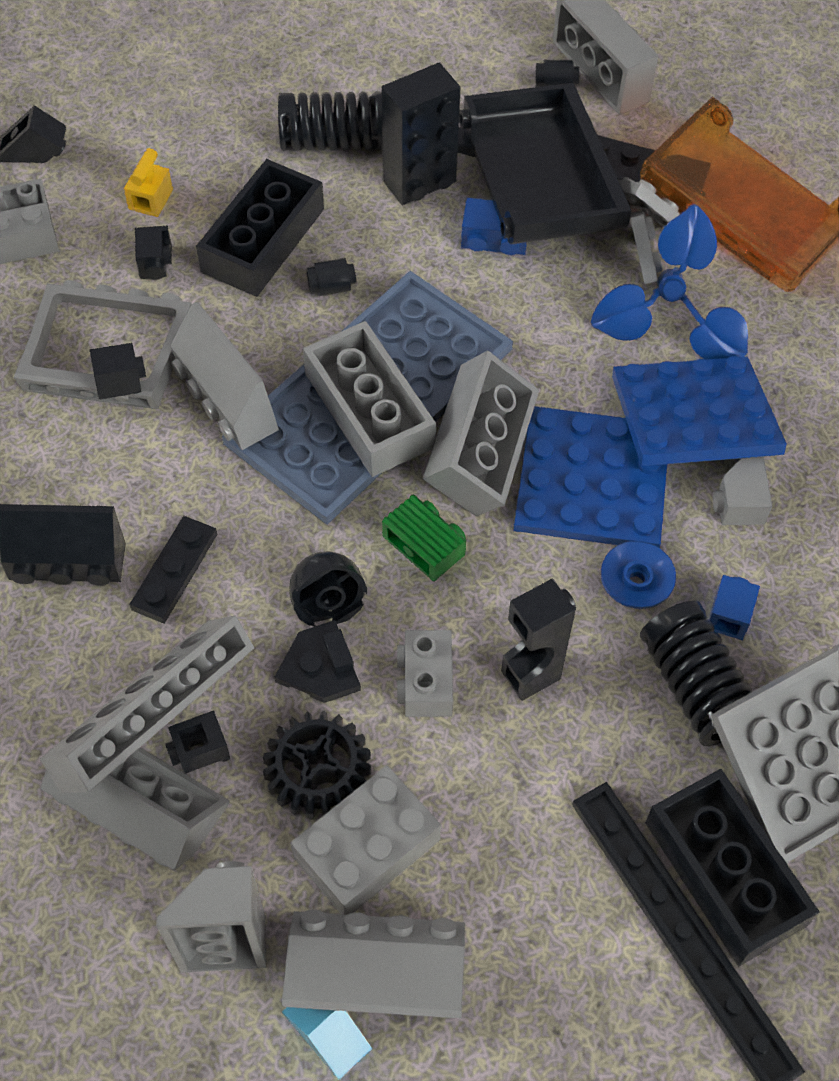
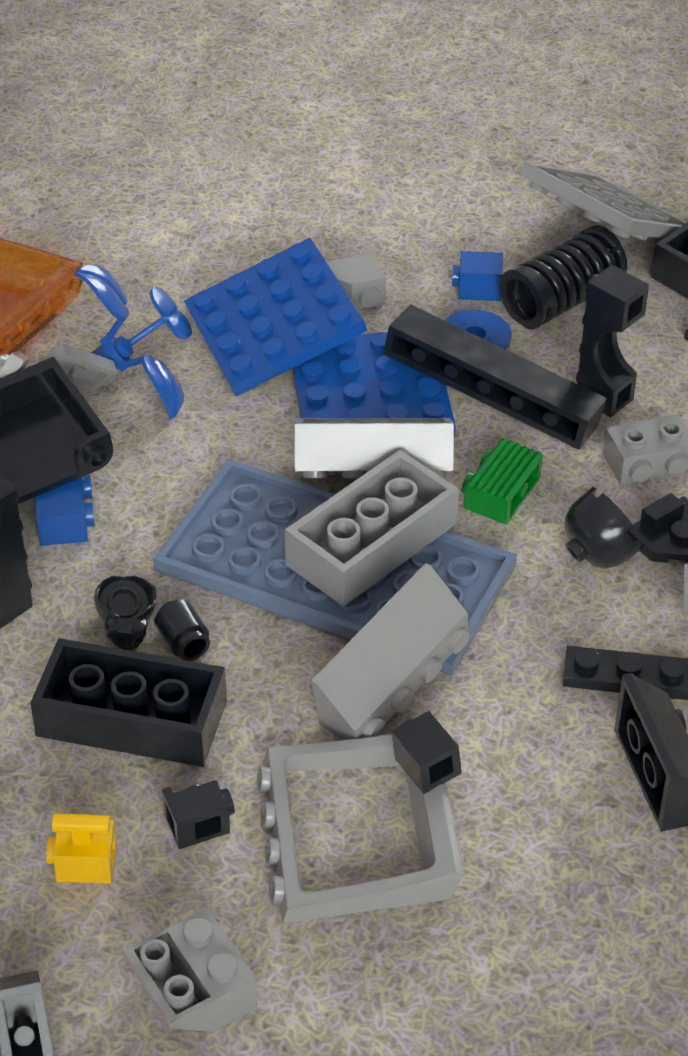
camera: 105 degrees left, 15 degrees down
(363, 243) = (125, 608): none -> black hair
(562, 555) = (494, 376): none -> black brick

